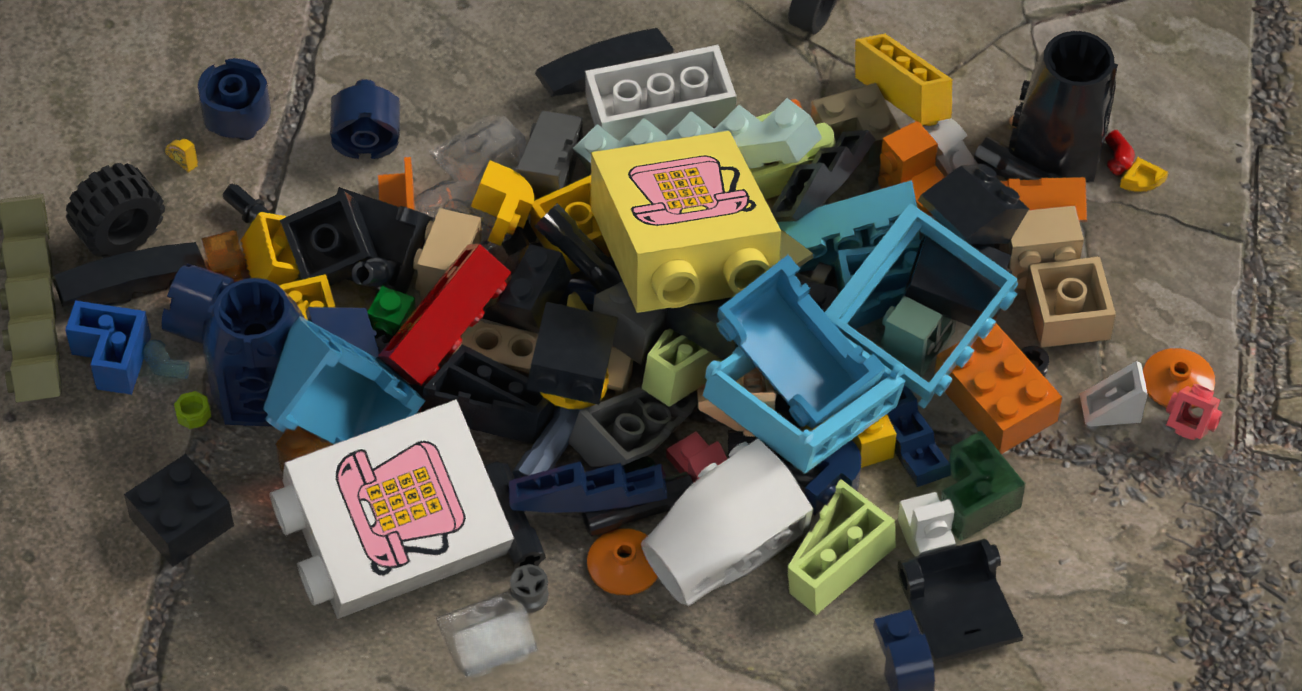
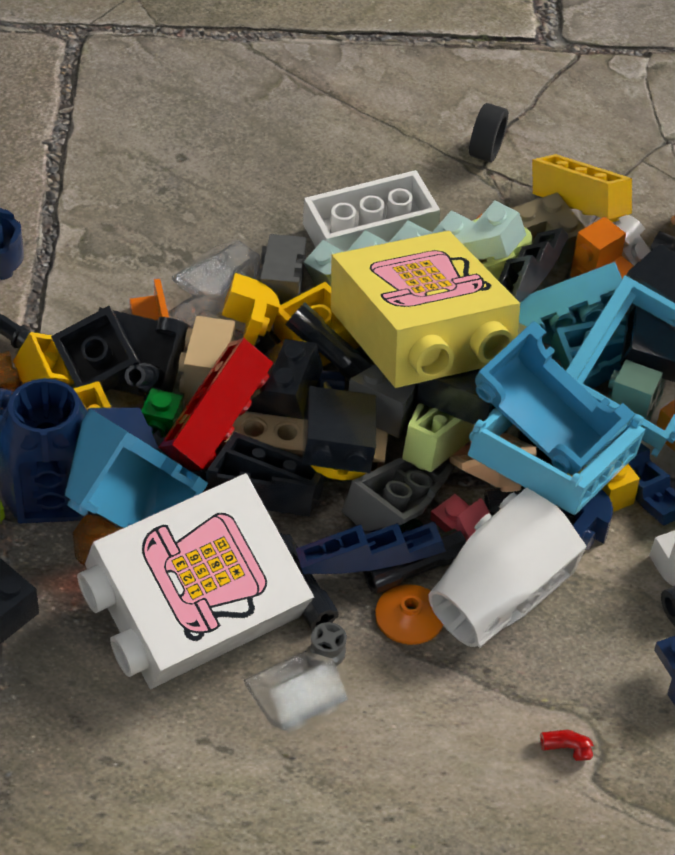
camera: 10 degrees left, 5 degrees down
(365, 120) = (113, 252): dark blue brick -> none
(549, 445) = (325, 512): sand blue axle -> none
(567, 73) = (288, 202): black slope -> none
(840, 548) = (609, 583): yellowish green wedge -> none

